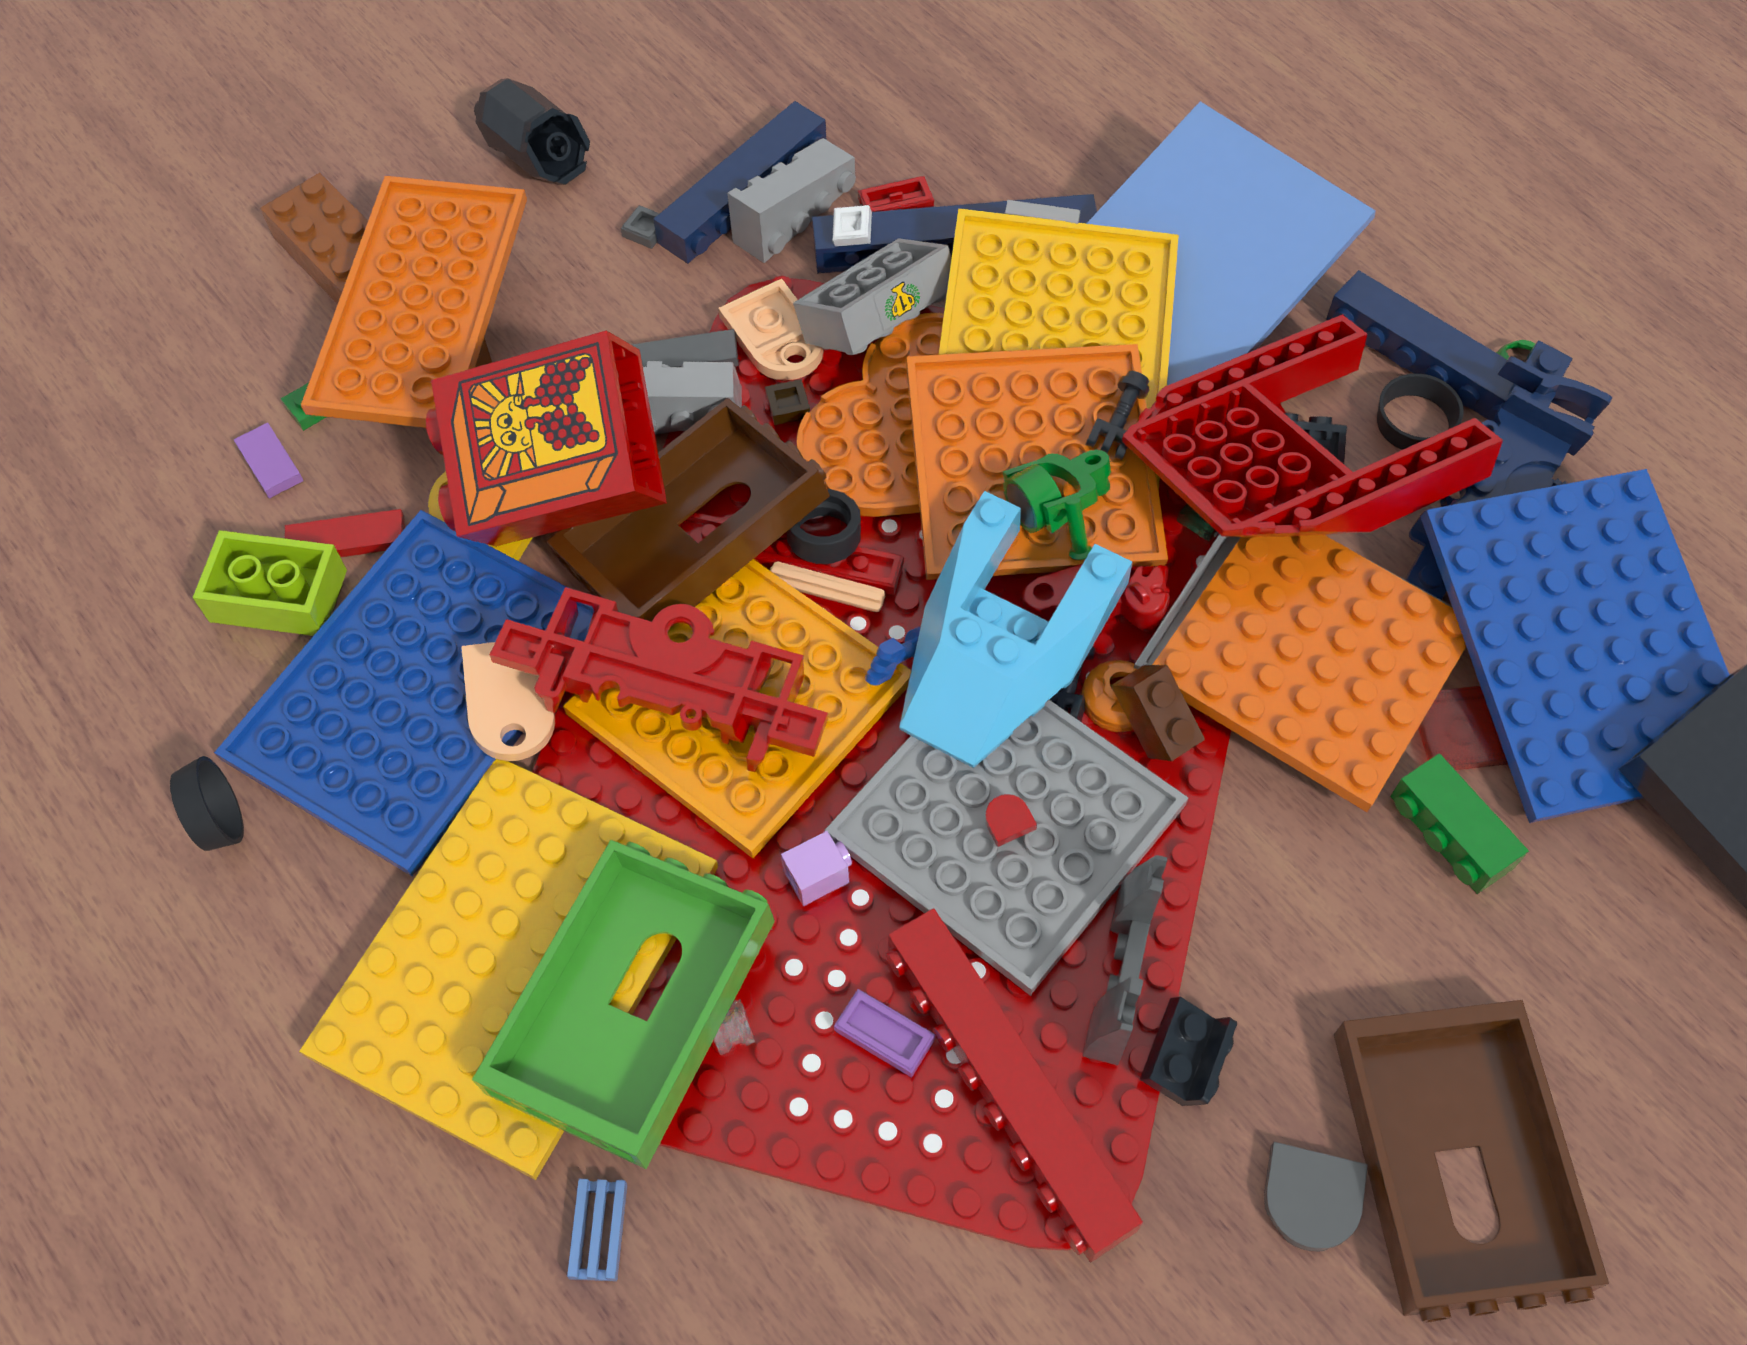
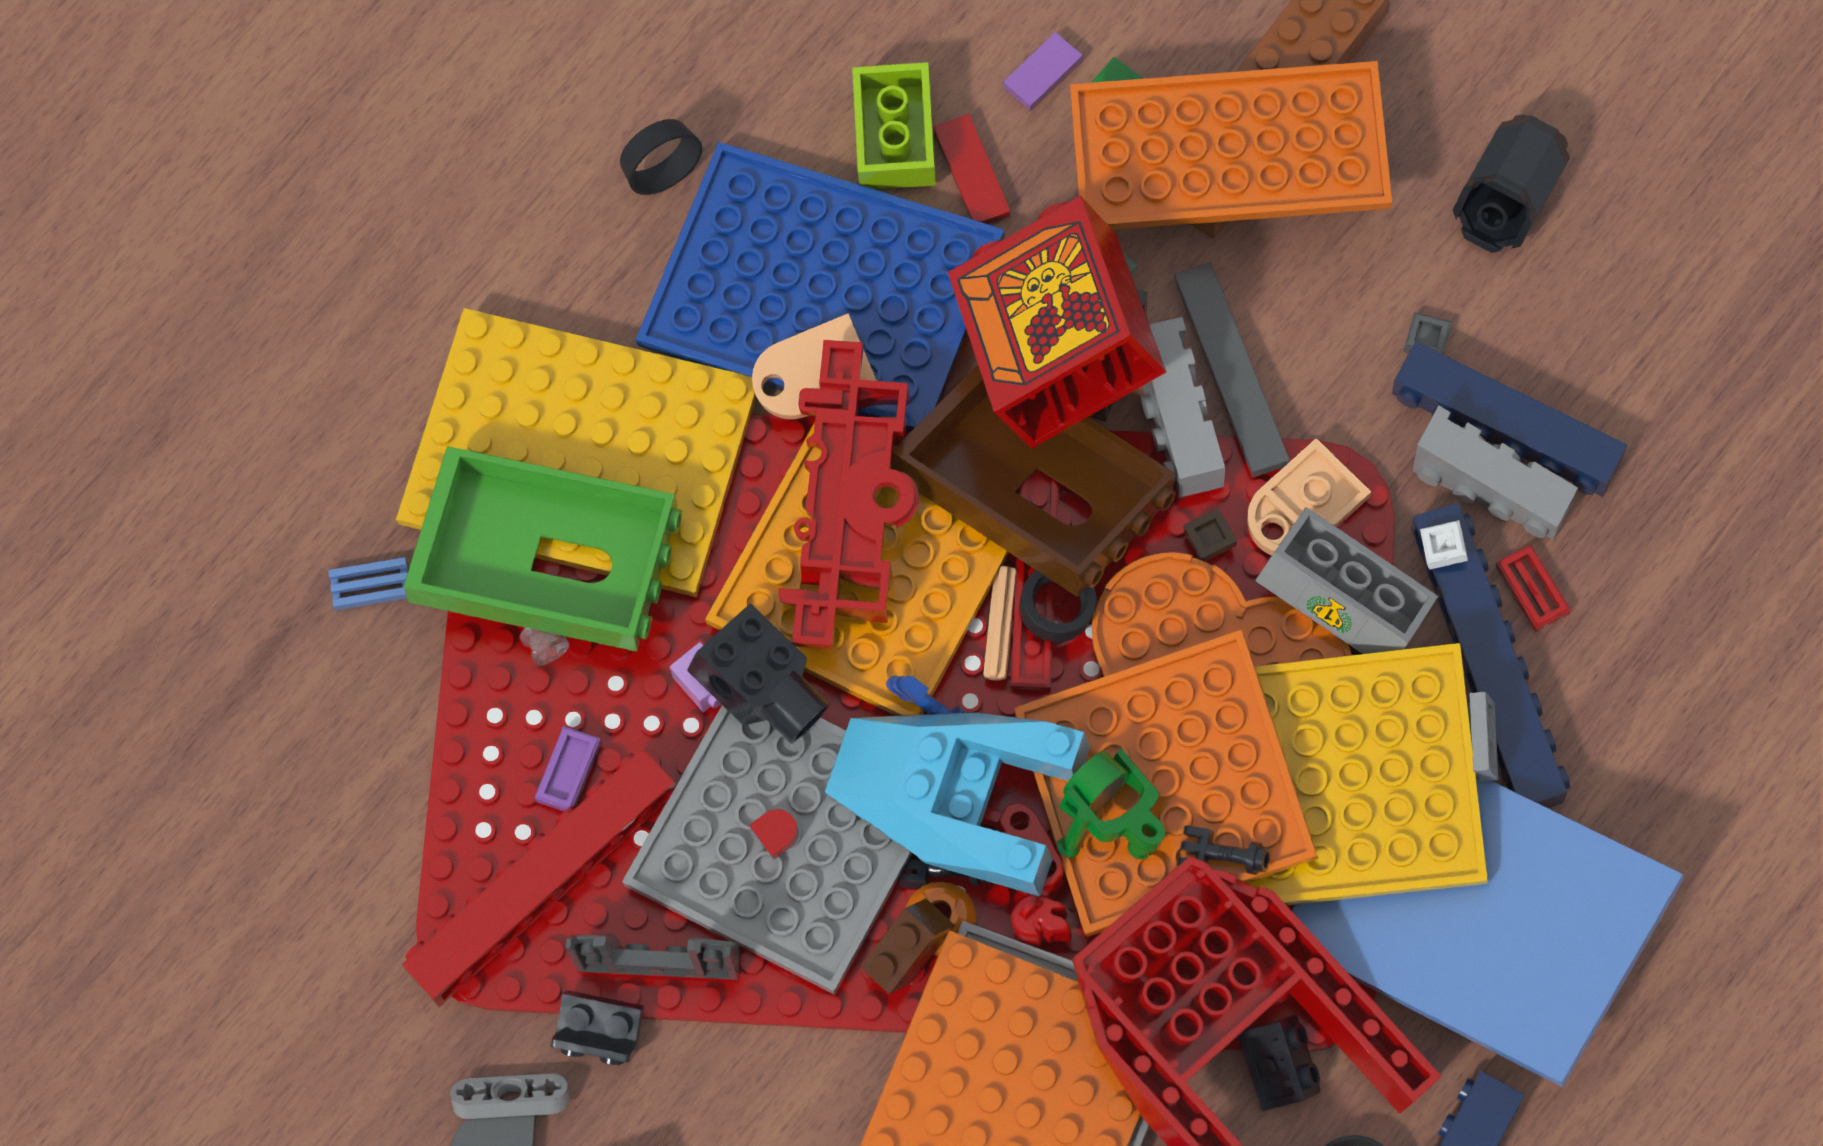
camera: 85 degrees right, 10 degrees up
(839, 793) = (759, 675): none -> black brick
(1240, 1150) = (524, 1105): none -> light grey beam

